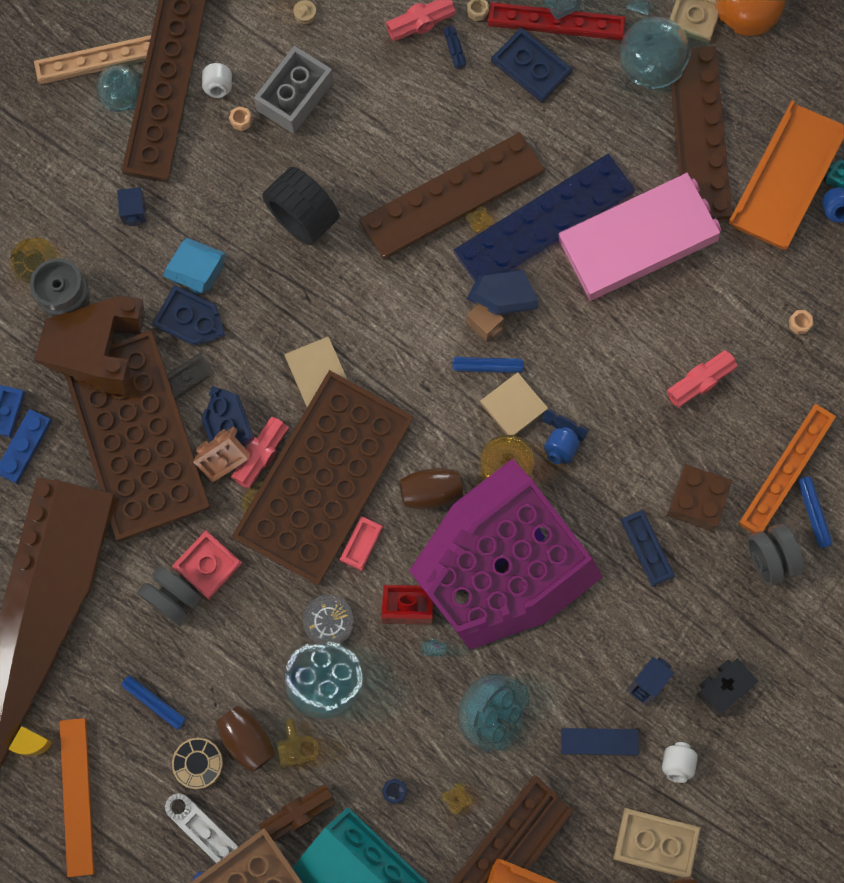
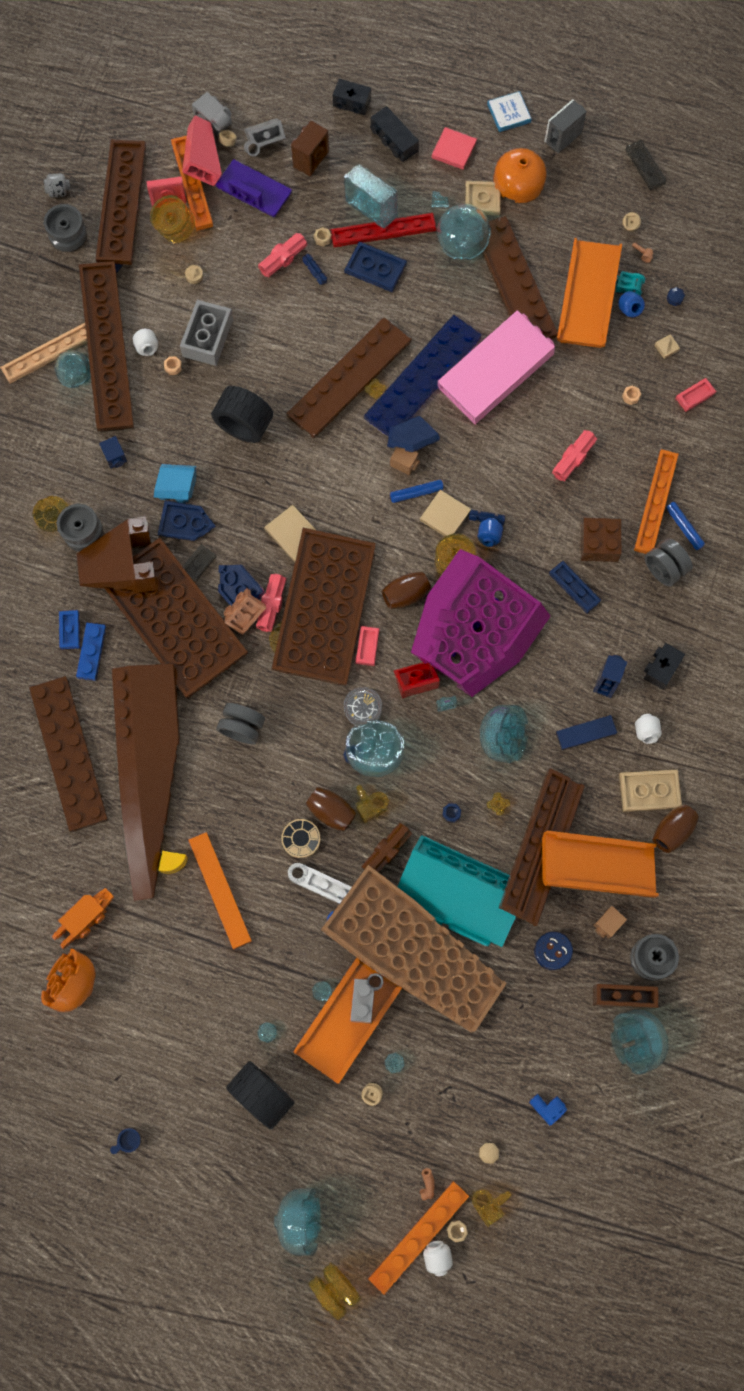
camera: 20 degrees left, 0 degrees up
(153, 702) = (253, 805): blue axle -> none
(207, 565) = (259, 694): coral tile -> none

